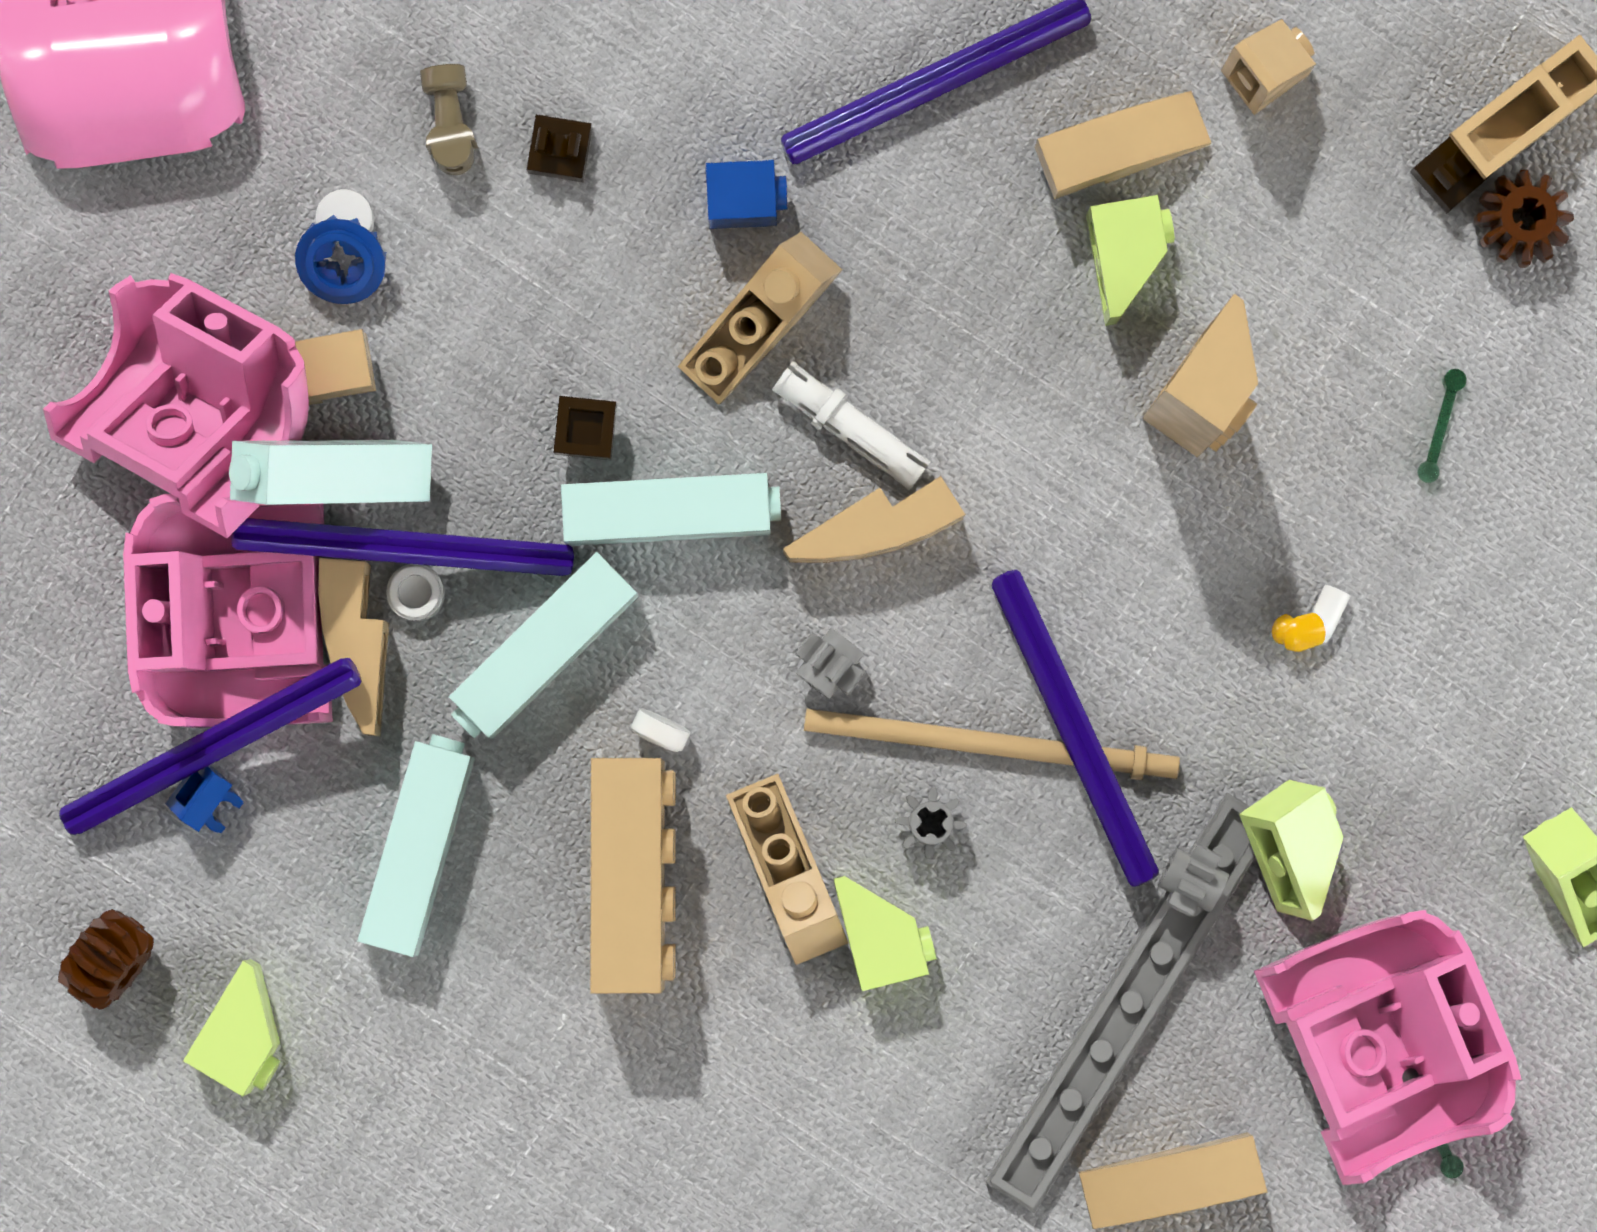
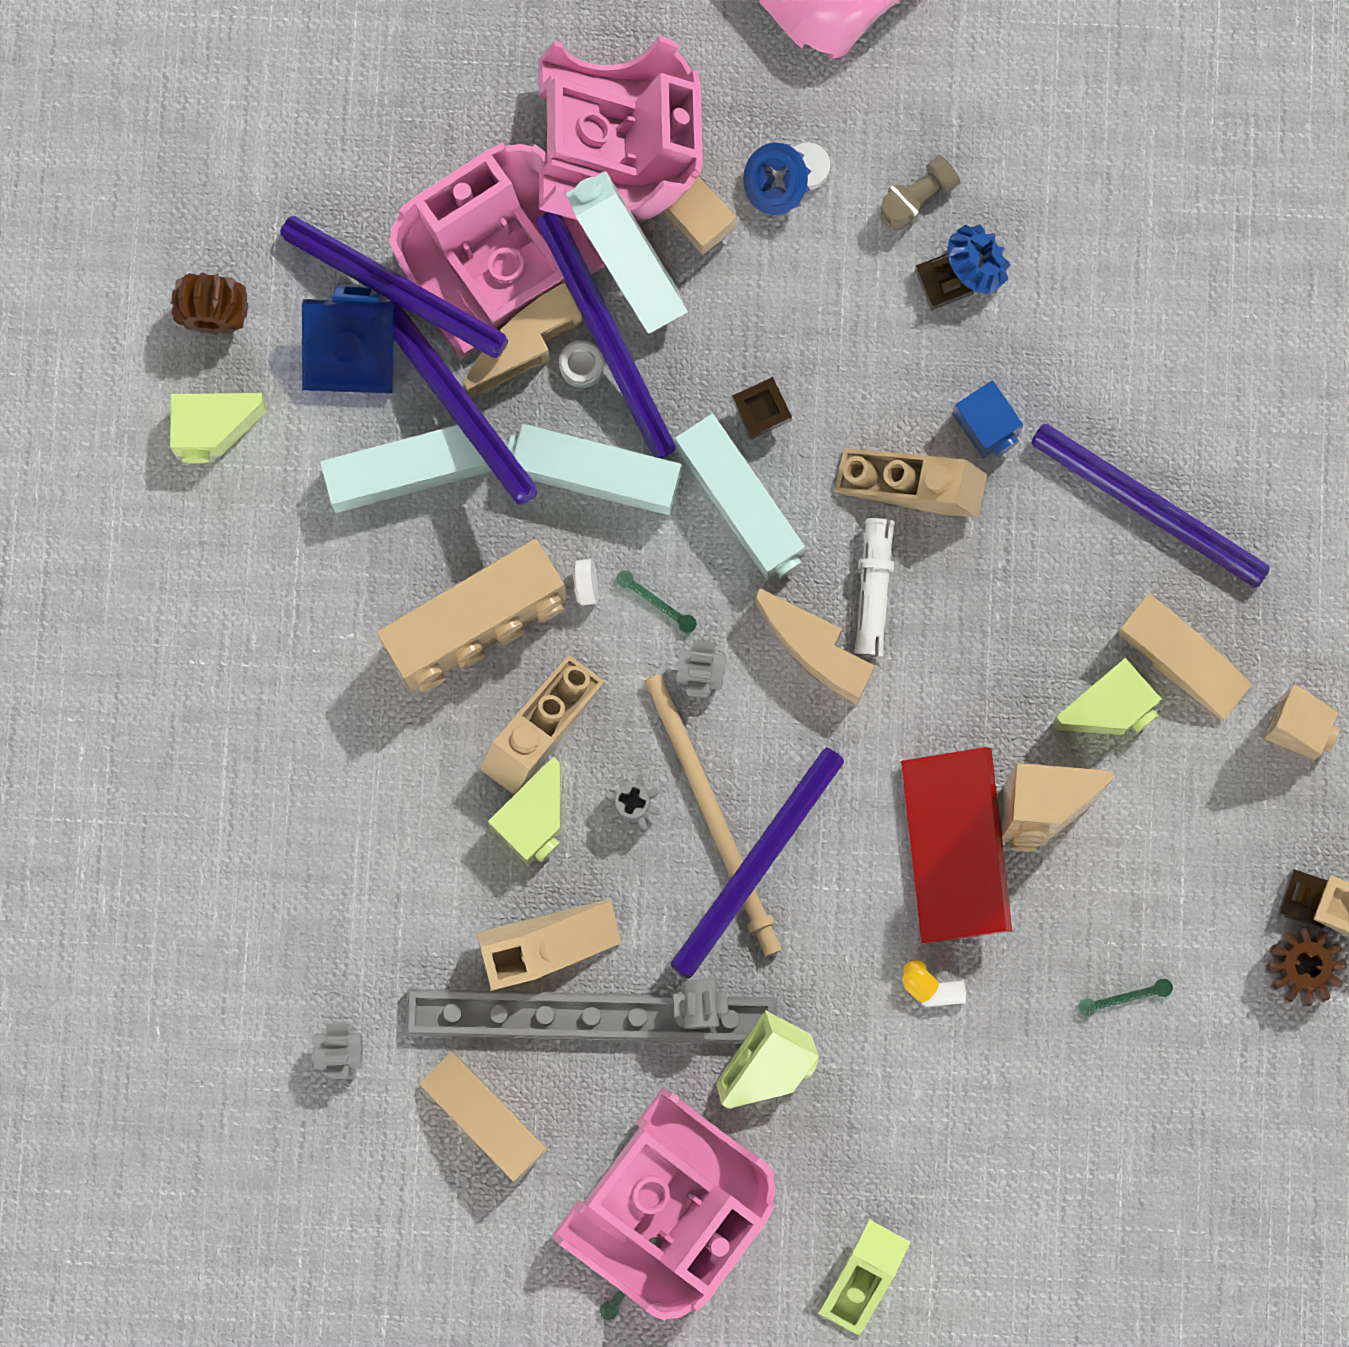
camera: 65 degrees right, 5 degrees down
(244, 835) = (347, 346): none -> clear blue tile
(384, 753) = (462, 408): none -> dark purple axle
(554, 111) = (964, 257): none -> blue gear
(767, 648) = (687, 623): none -> clear green hinge
(1028, 1006) = (547, 943): none -> tan slope
(1181, 505) = (956, 845): none -> red tile

